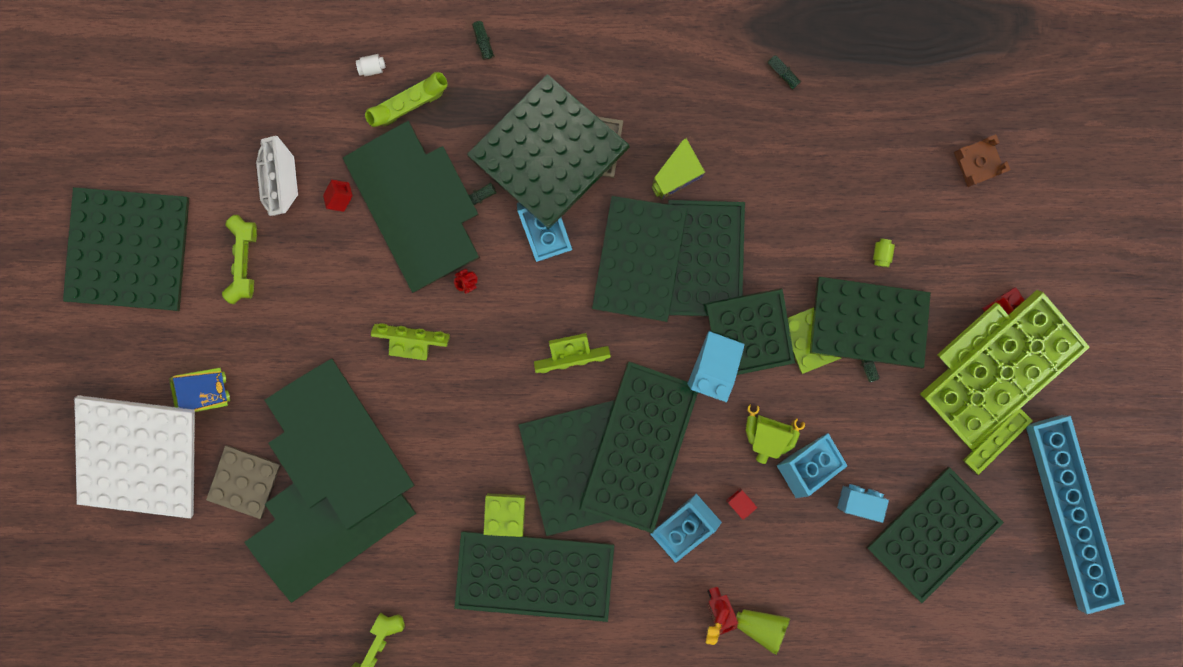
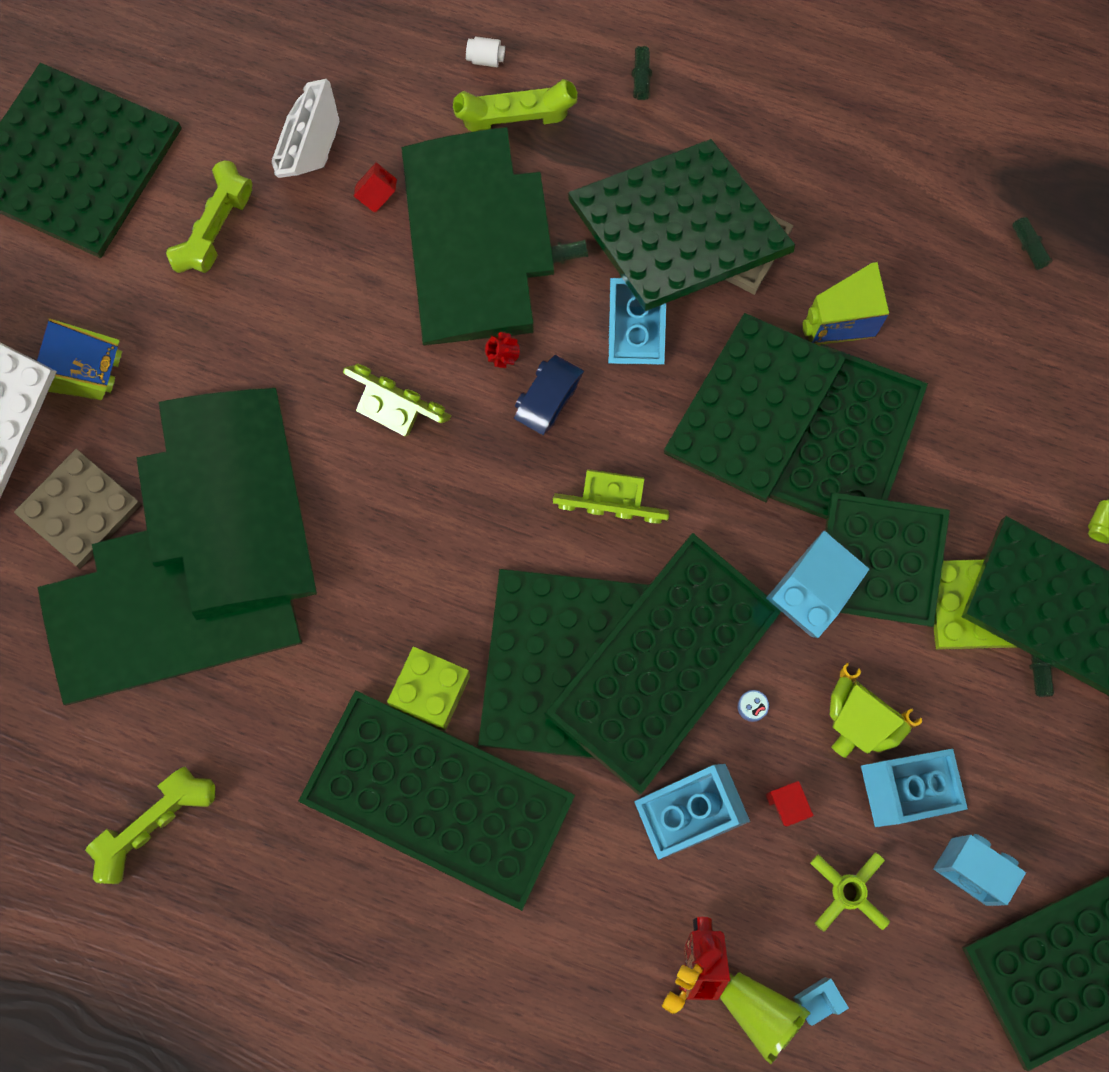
camera: 15 degrees right, 15 degrees down
(506, 300) = (548, 394): none -> dark blue brick
(701, 451) = (753, 705): none -> tile
(794, 607) = (821, 1000): none -> medium azure panel
(799, 544) = (858, 881): none -> lime bar

